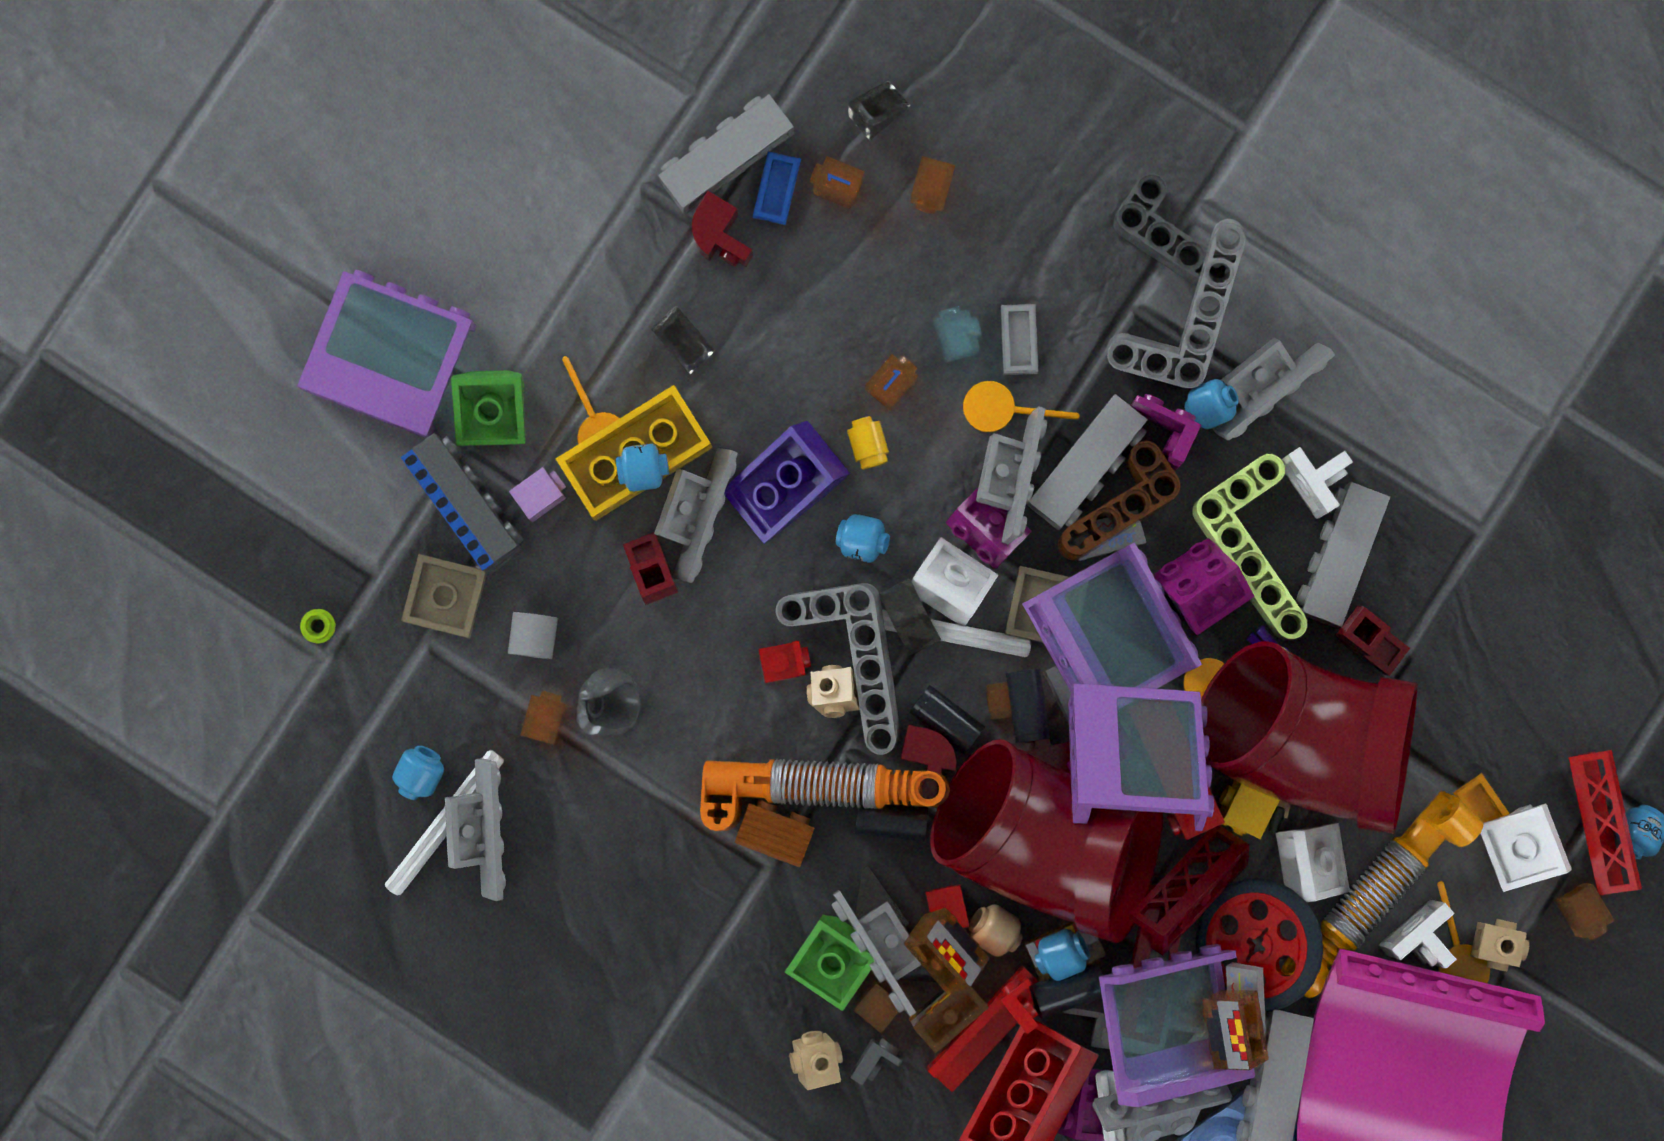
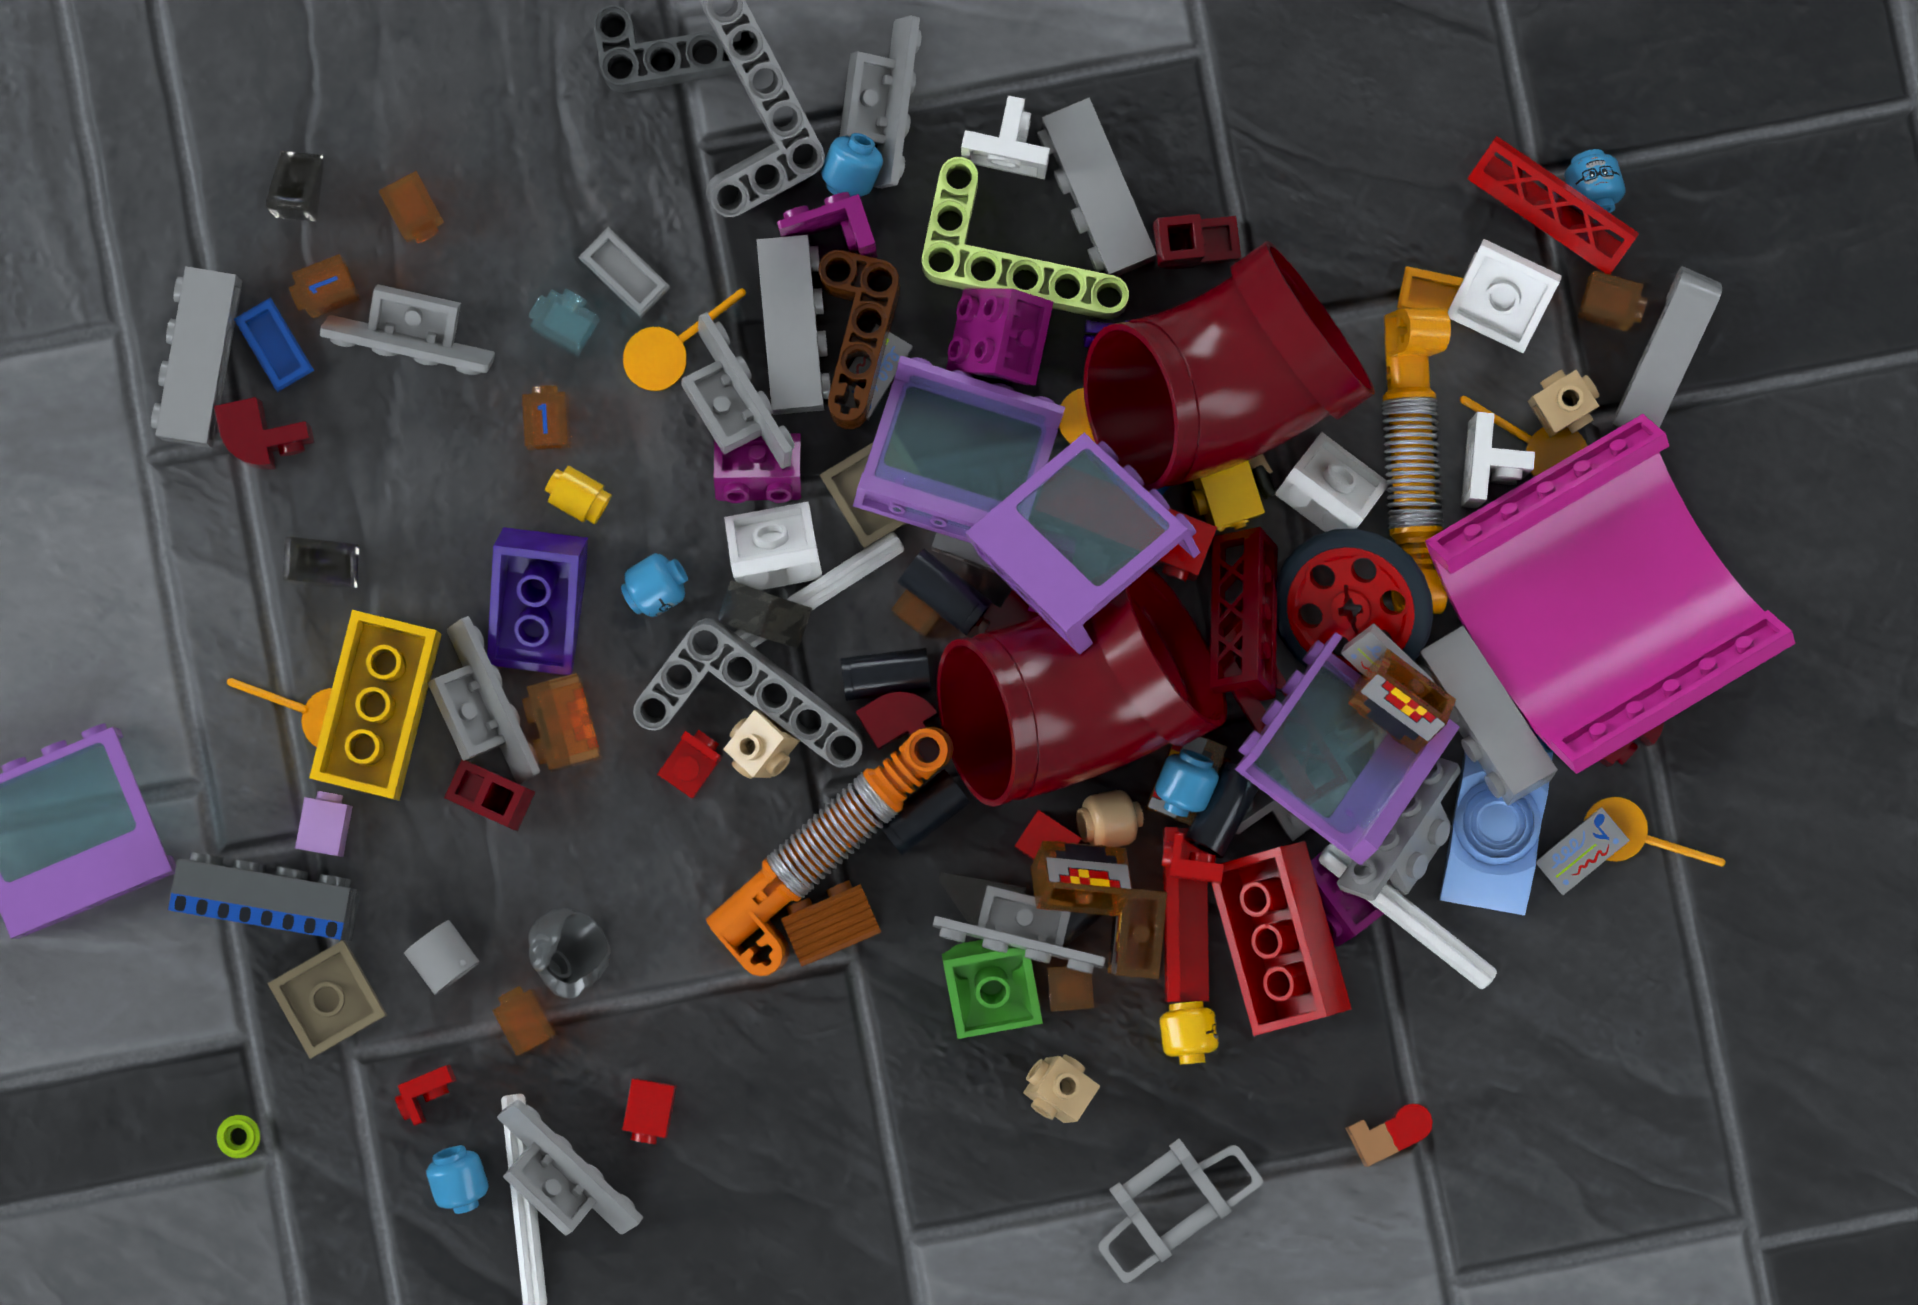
camera: 45 degrees left, 0 degrees up
(454, 703) = (430, 1085): none -> red bracket
(488, 408) = (204, 791): bright green slope -> none
(566, 840) = (649, 1110): none -> red brick
(641, 467) = (395, 710): dark azure head -> none
(732, 566) = (562, 723): none -> clear orange brick
(865, 253) = (411, 327): none -> light grey bracket
(868, 1064) = (1111, 1047): dark grey bracket -> none
(923, 1099) = (1189, 1032): none -> yellow head
(1595, 973) = (1670, 348): none -> light grey beam

